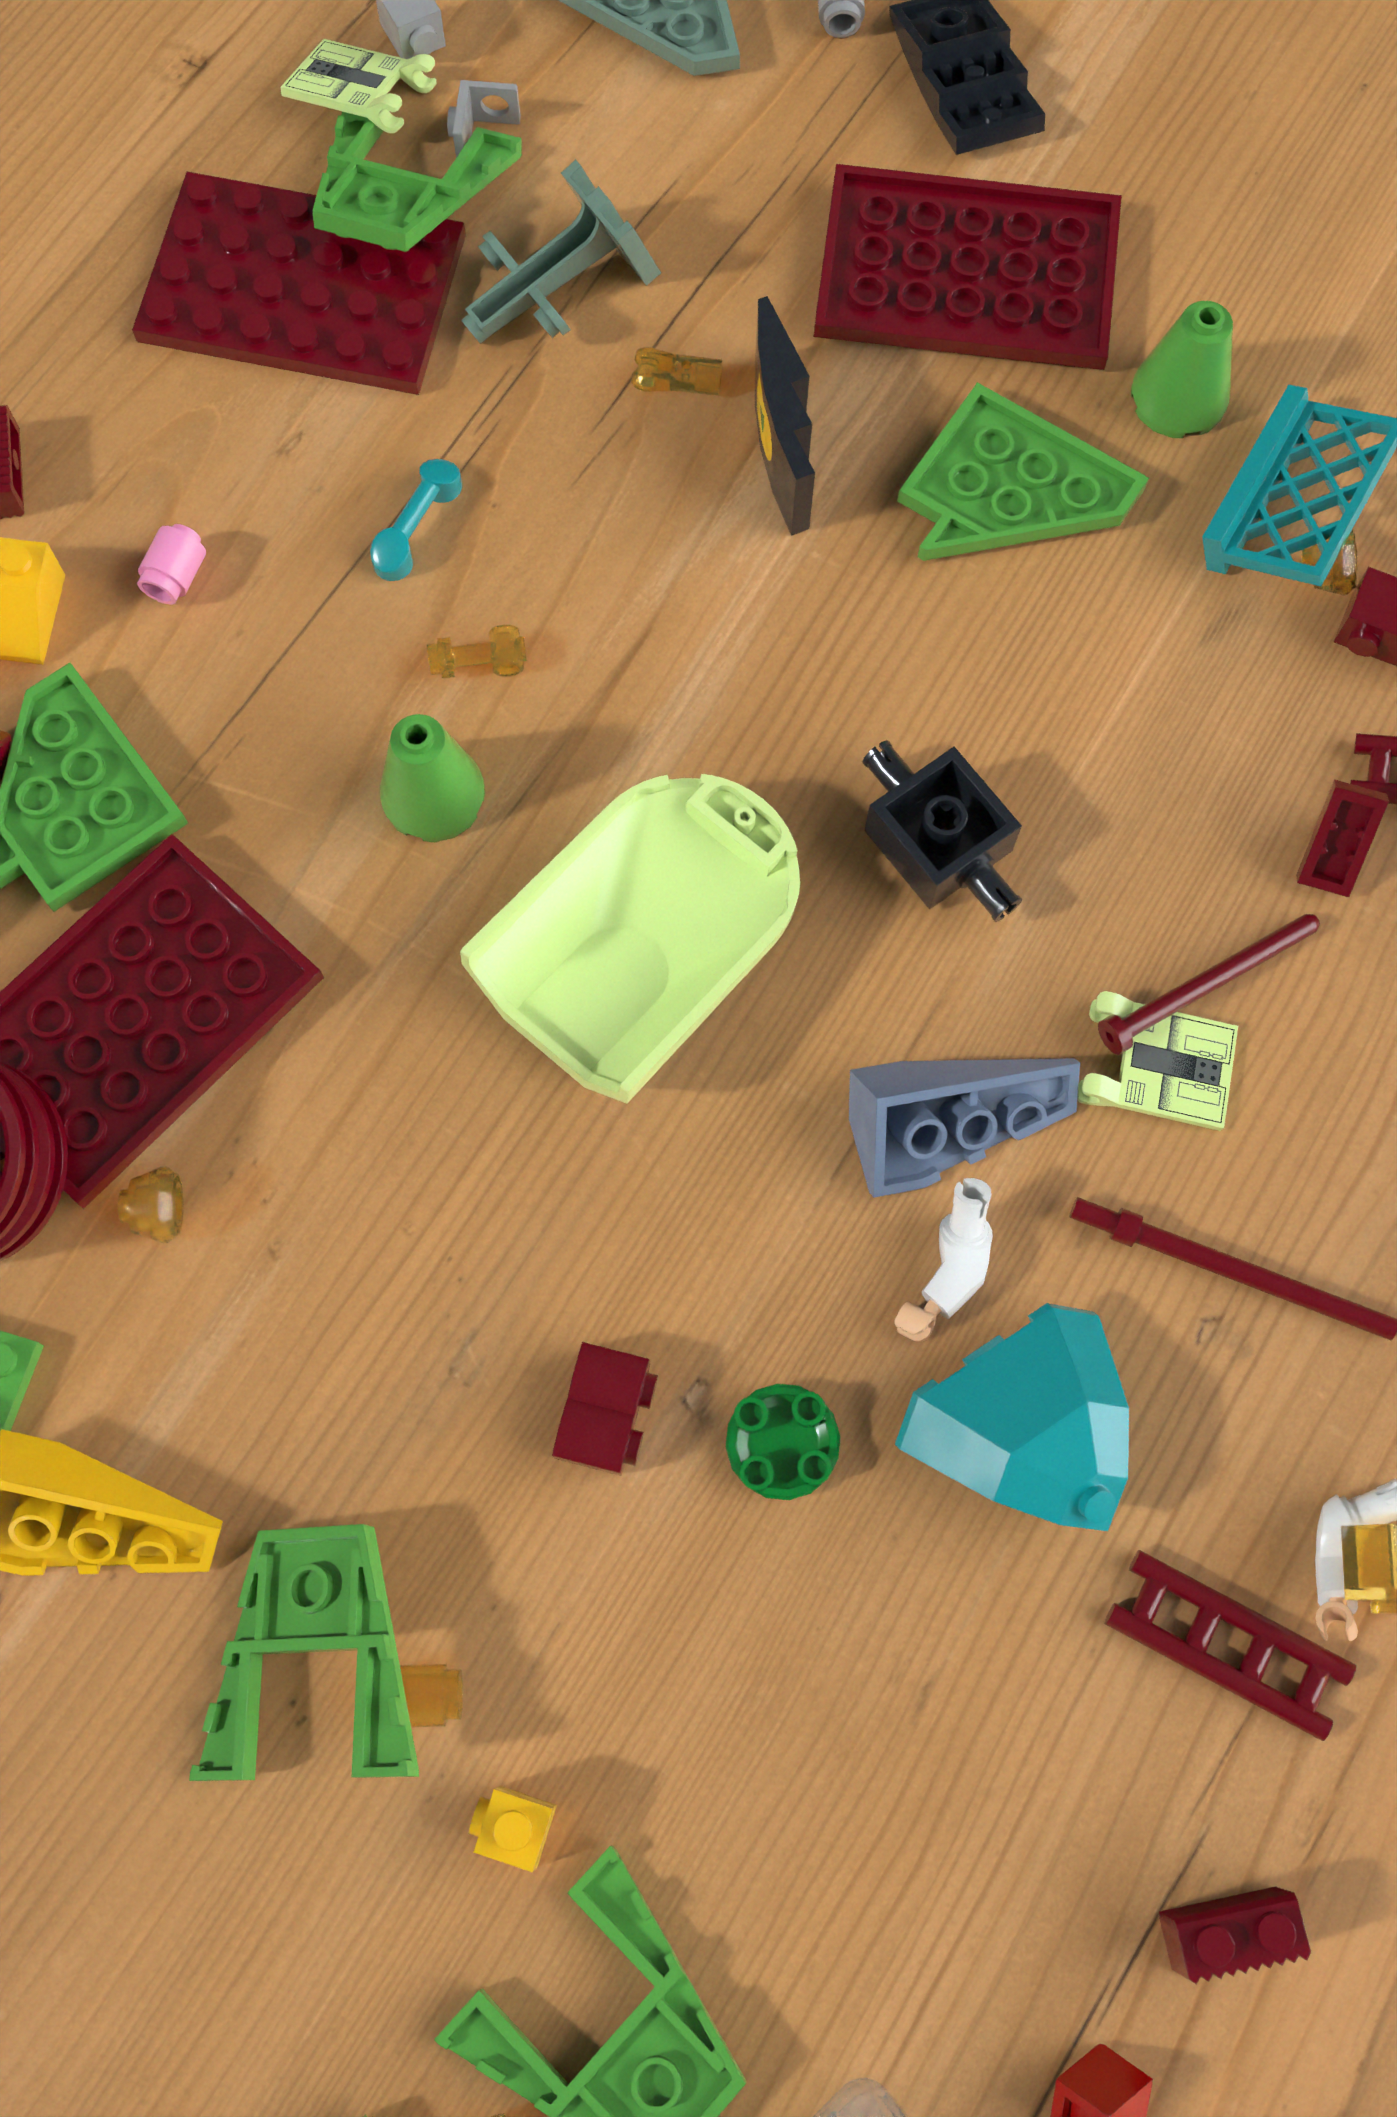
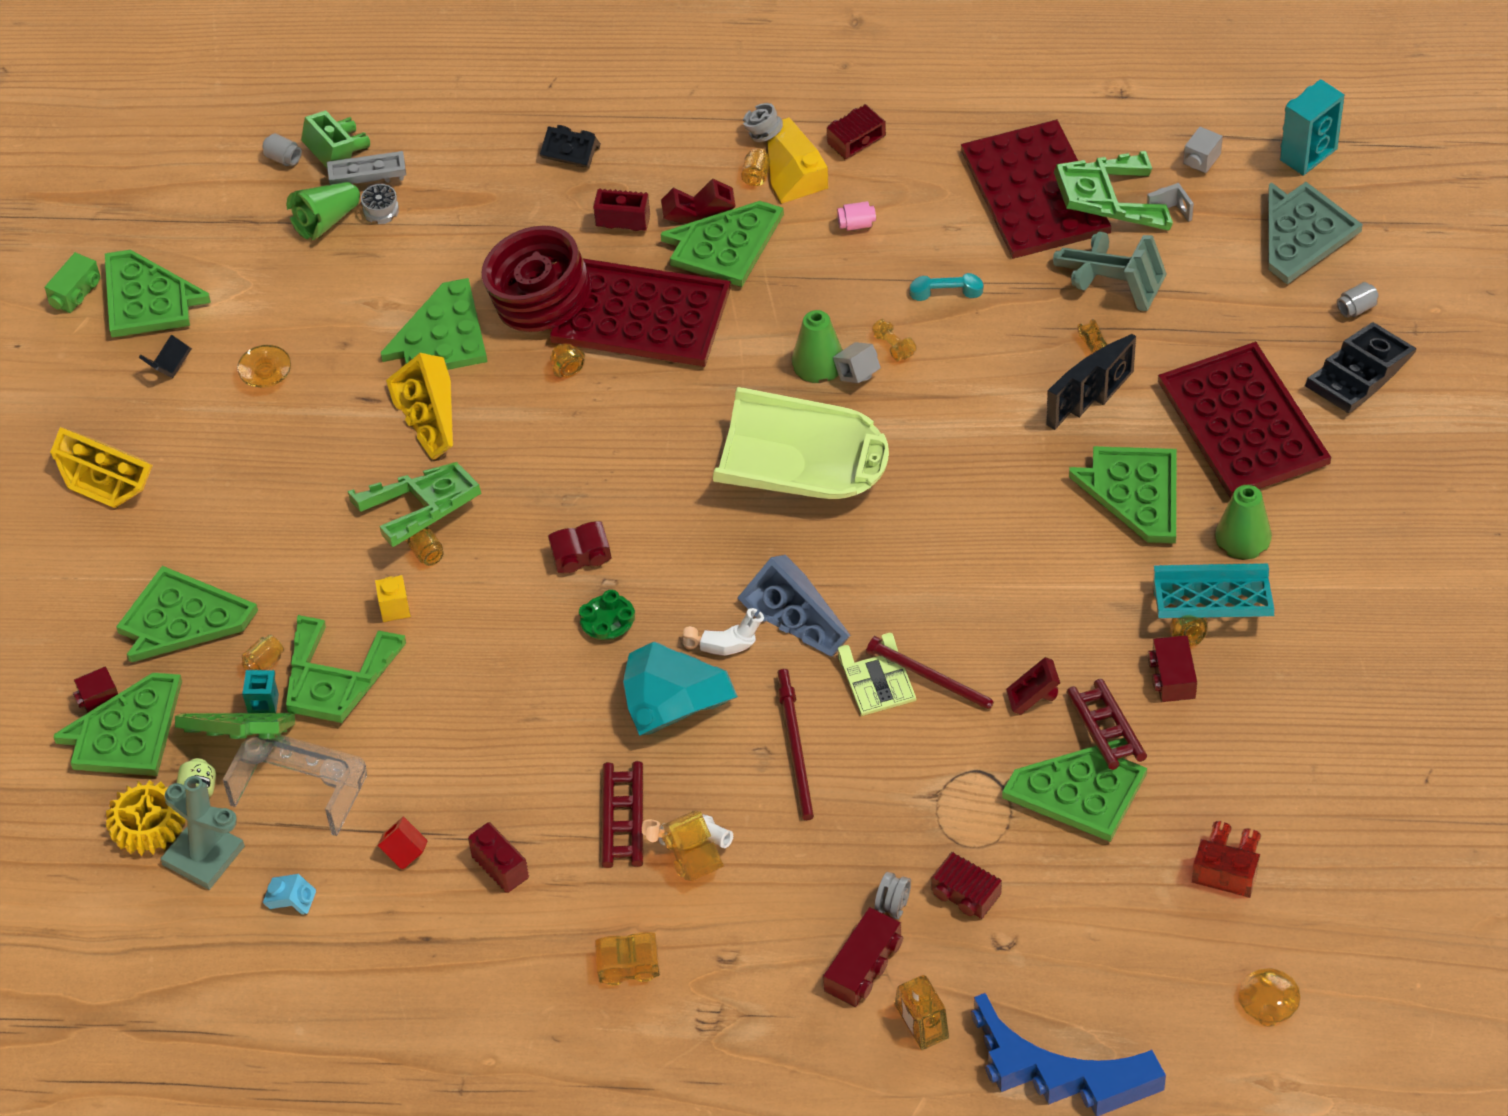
camera: 65 degrees right, 20 degrees down
(358, 81) = (1154, 147): yellowish green flag -> none
(499, 733) = (857, 362): none -> light grey brick
(913, 822) = (927, 537): black brick -> none

